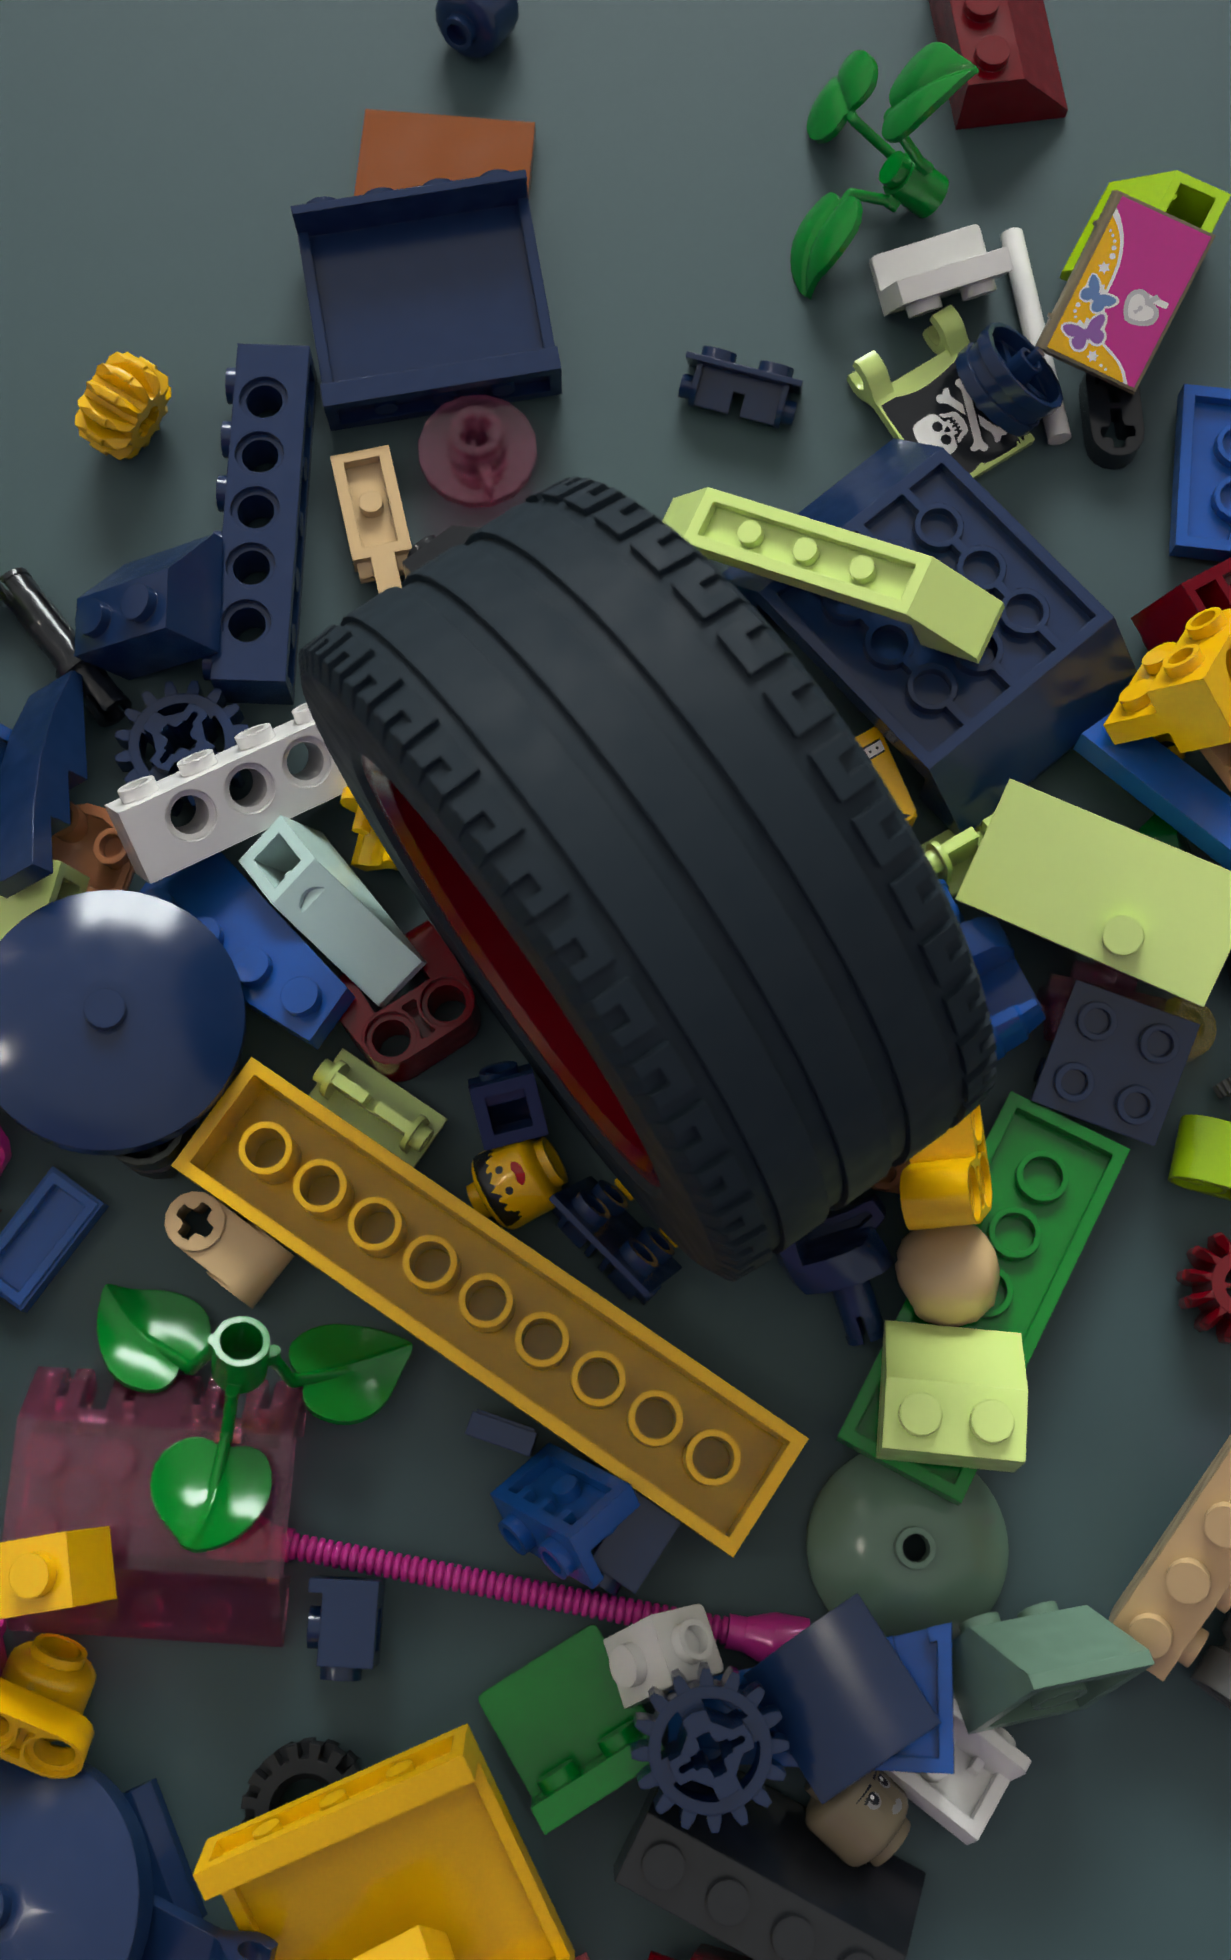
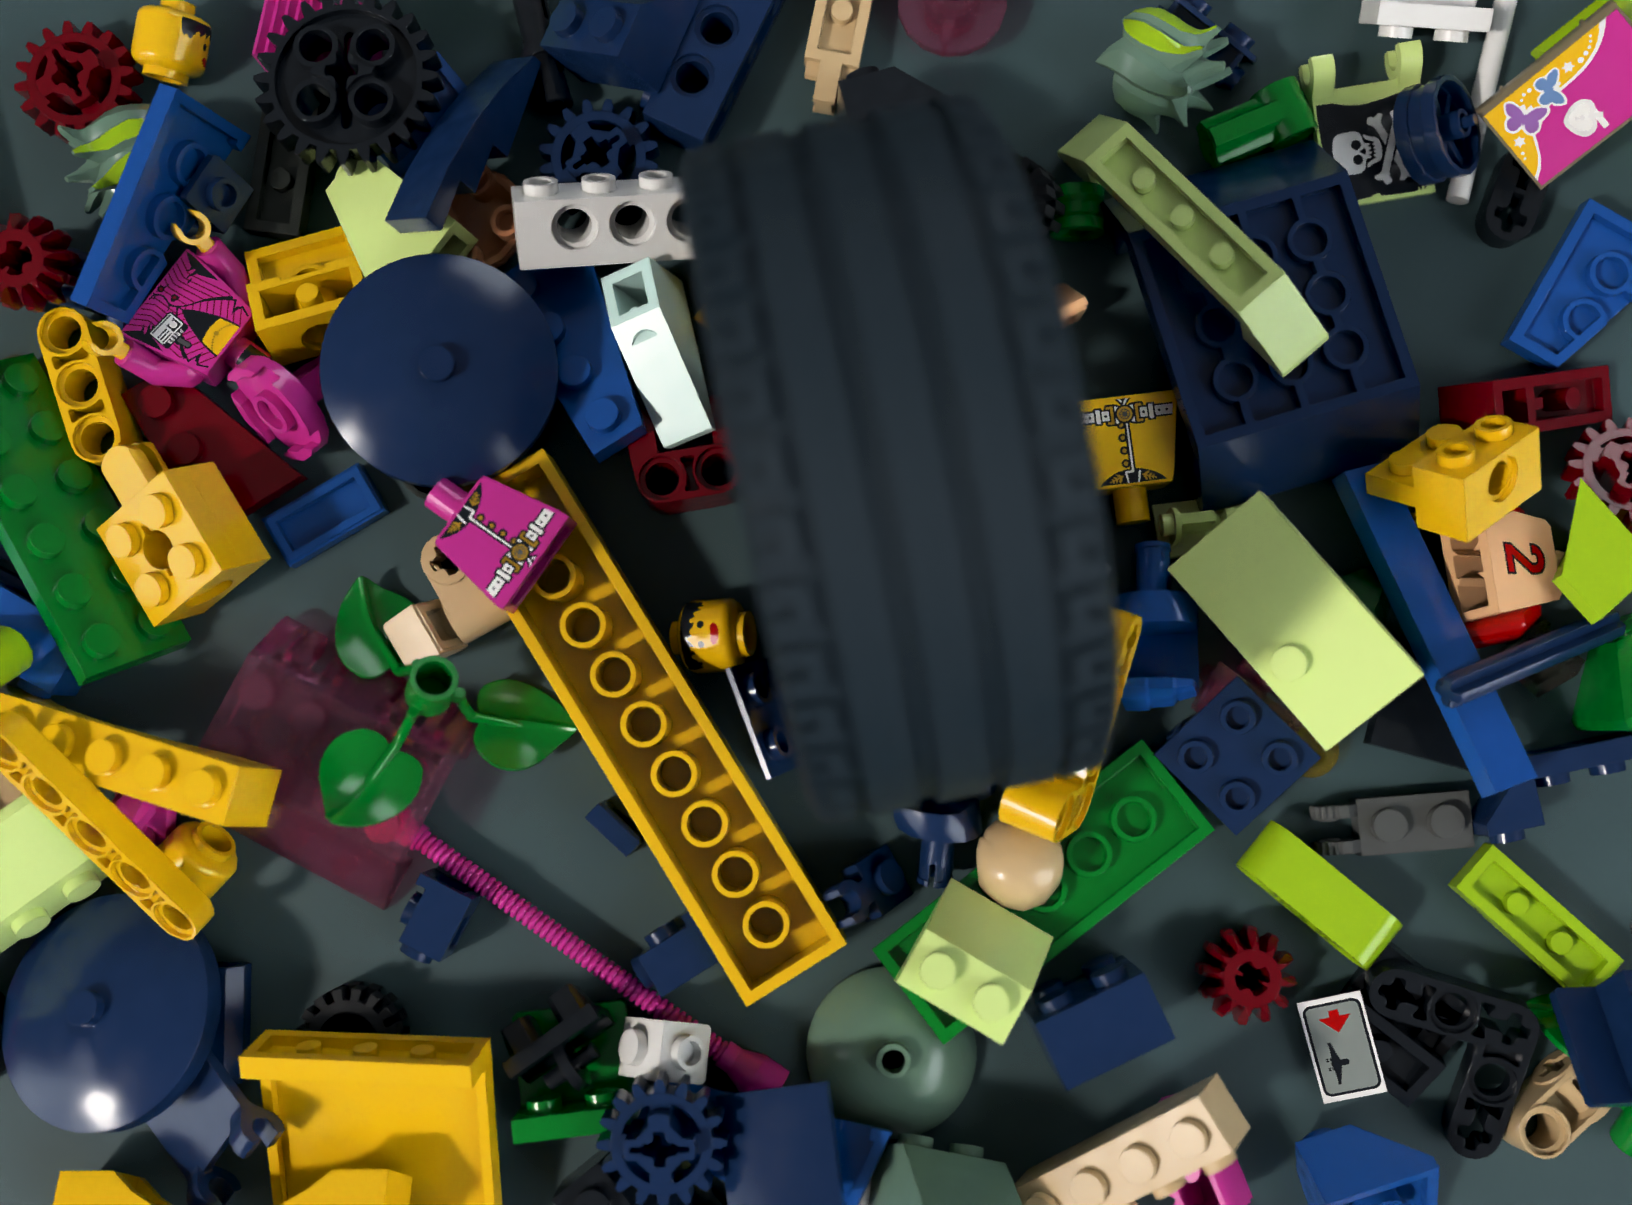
camera: 30 degrees right, 10 degrees up
(196, 1312) = (422, 632): none -> tan slope
(246, 1163) = (498, 536): none -> dark pink torso
(376, 1106) = (628, 527): yellowish green hinge -> none
(507, 1104) = (726, 563): dark blue brick -> none
(550, 1706) = (537, 1053): none -> black hips
(562, 1511) = (634, 909): blue bracket -> none
(716, 425) = (1163, 65): none -> sand green hair
(803, 1372) = (869, 887): none -> dark blue plate
(842, 434) = (1271, 119): none -> green piece
(1107, 1401) = (1096, 1019): none -> dark blue brick

